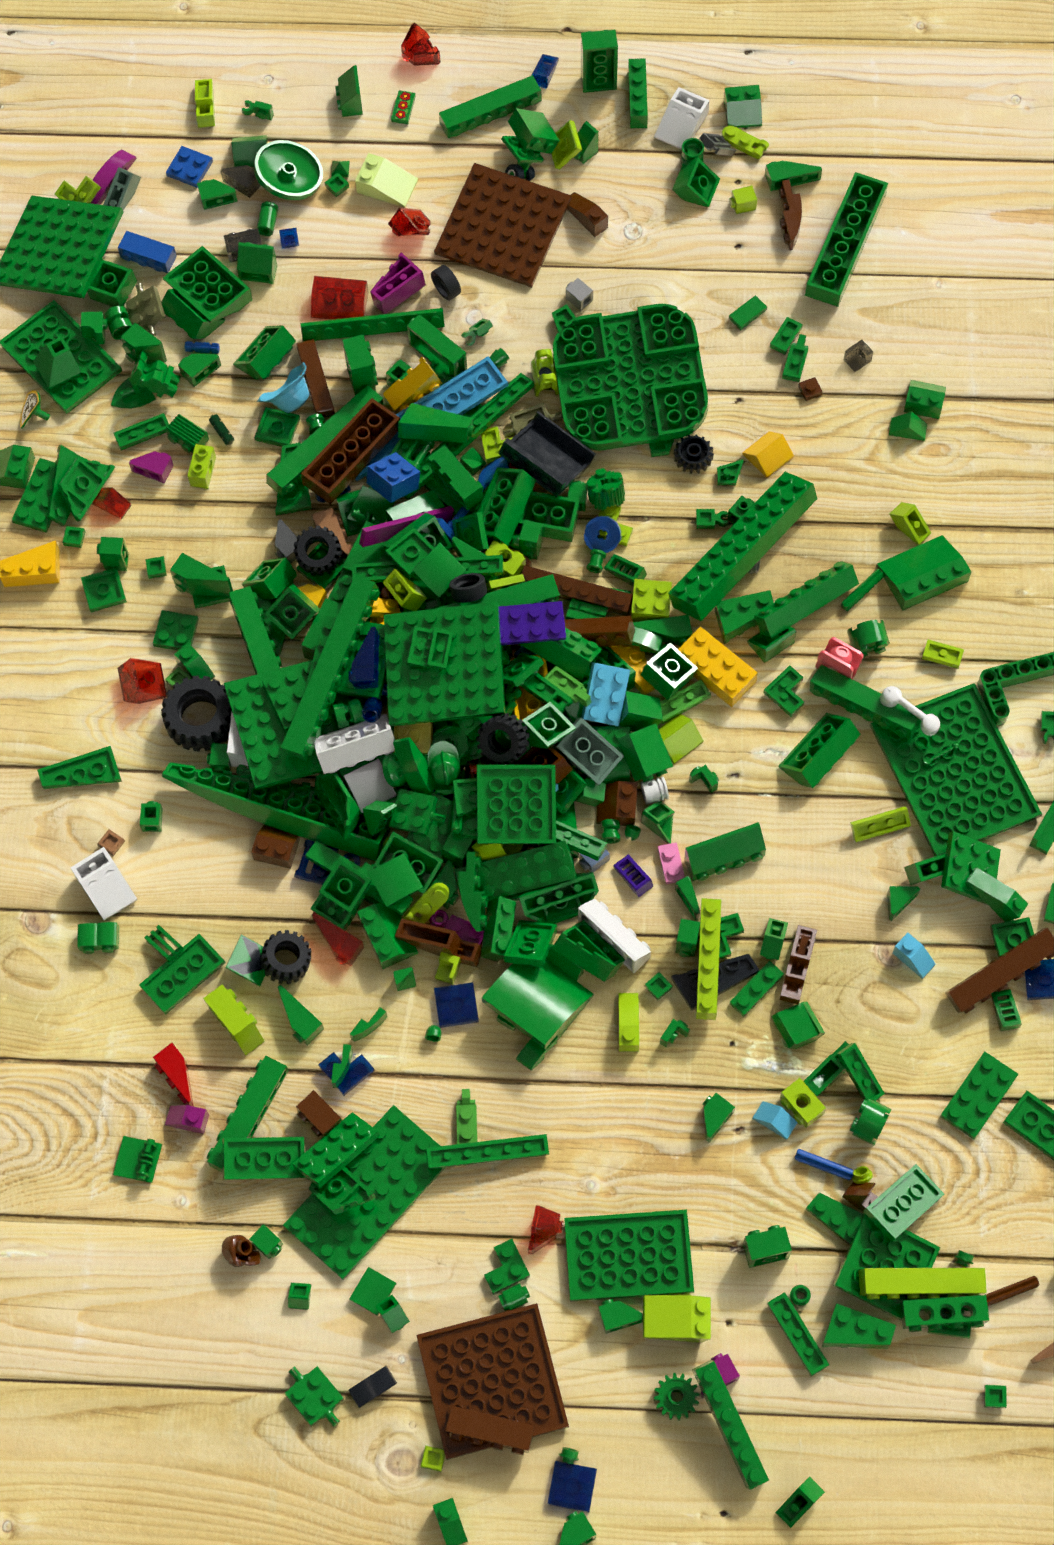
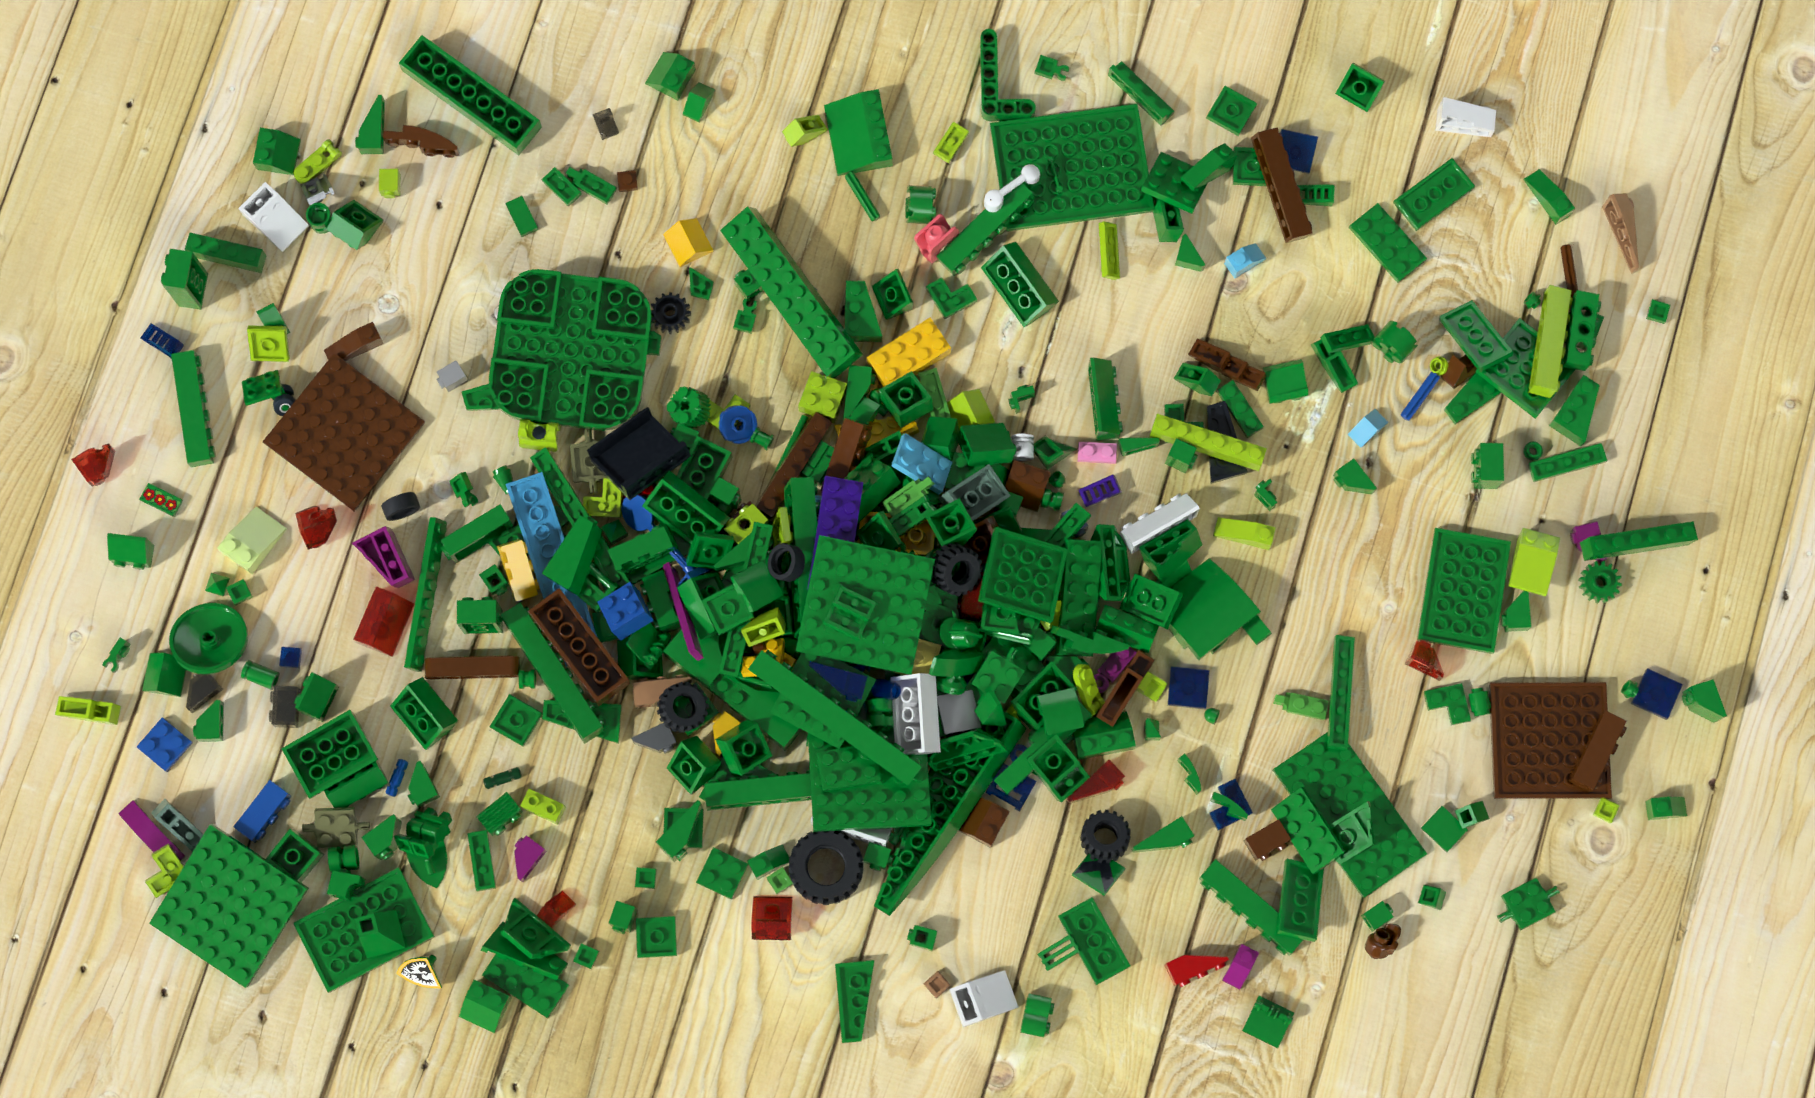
camera: 80 degrees left, 10 degrees up
(32, 567) = (611, 1005): yellow wedge -> none
(234, 1018) = (1152, 899): lime wedge -> none
(290, 395) = (482, 699): medium azure piece -> none
(372, 1386) = (1533, 848): black slope -> none
(533, 131) = (244, 370): green brick -> none
(637, 572) = (785, 398): green slope -> none
(658, 986) = (1217, 496): green plate -> none
(799, 1091) = (1368, 390): lime brick -> none
(800, 1502) = (1713, 501): green slope -> none
(806, 599) = (864, 249): green brick -> none

